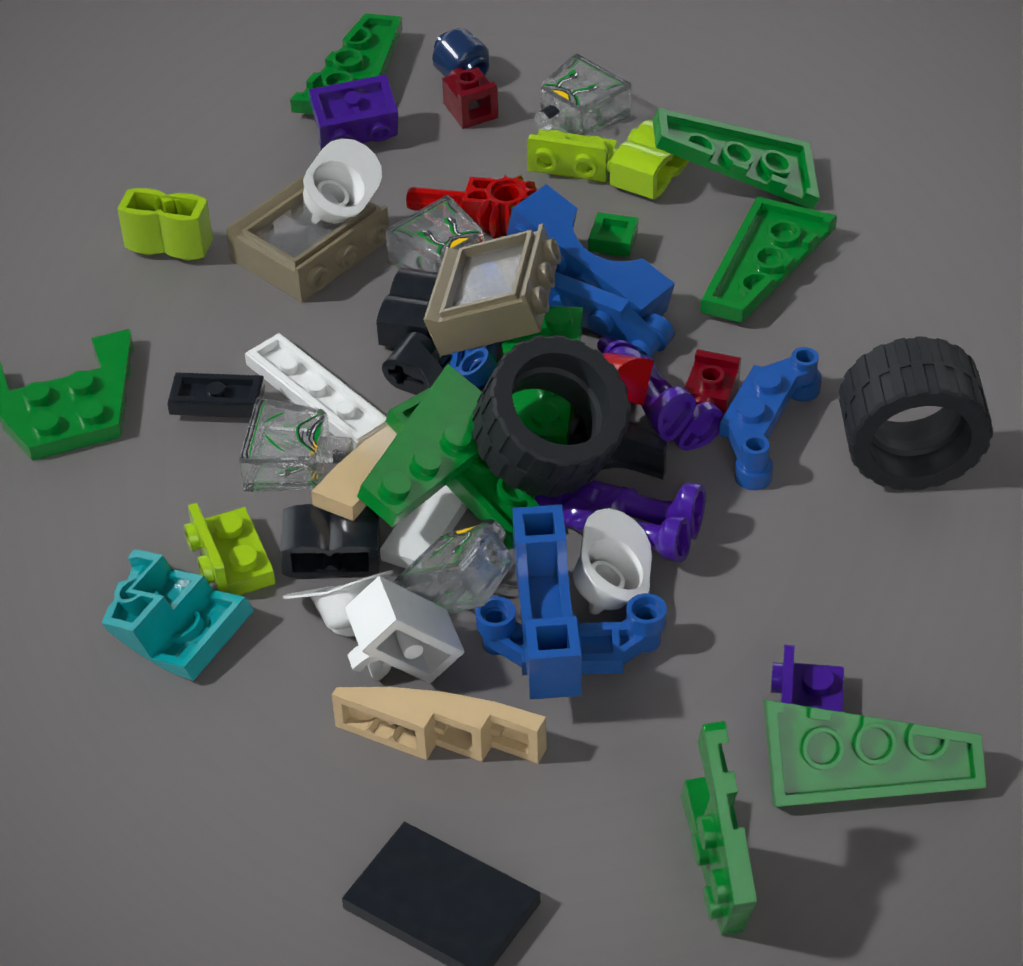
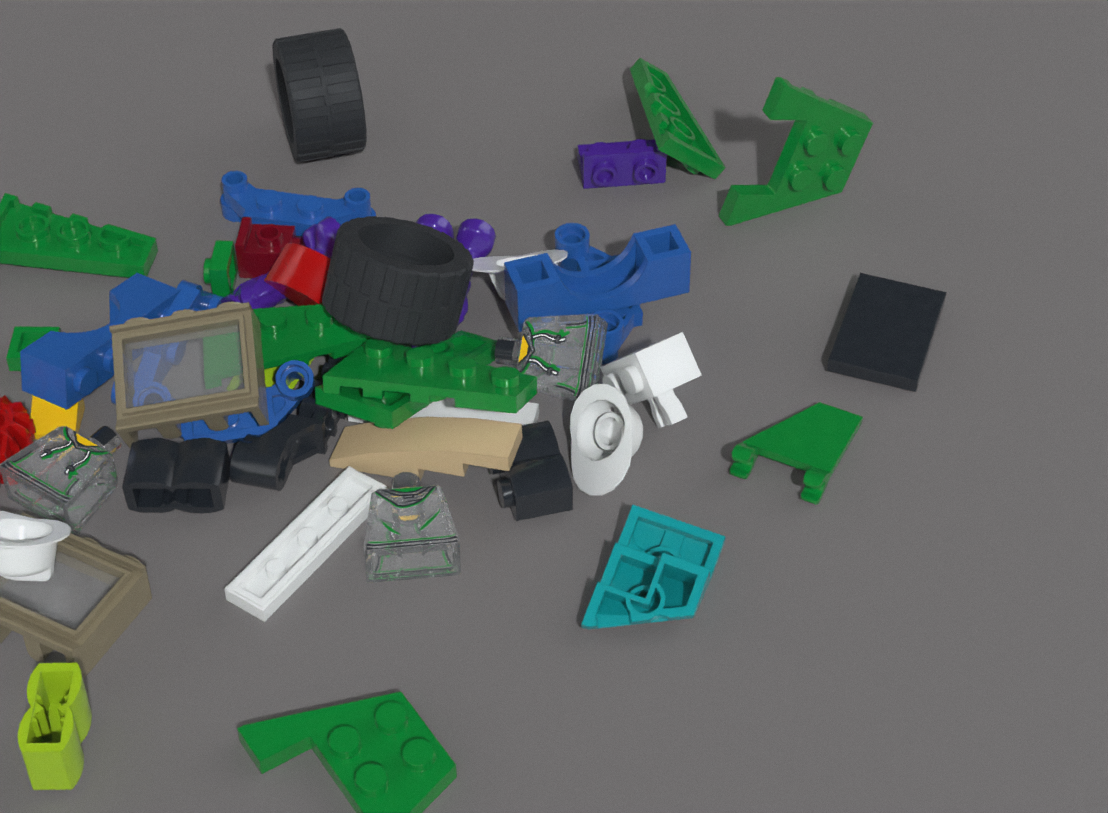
camera: 105 degrees left, 0 degrees up
(215, 394) = (336, 618): black plate -> none
(229, 551) = (558, 552): lime bracket -> none
(295, 777) = (808, 441): none -> green flag
(426, 718) = (724, 356): tan slope -> none
(679, 351) = (221, 268): none -> green plate

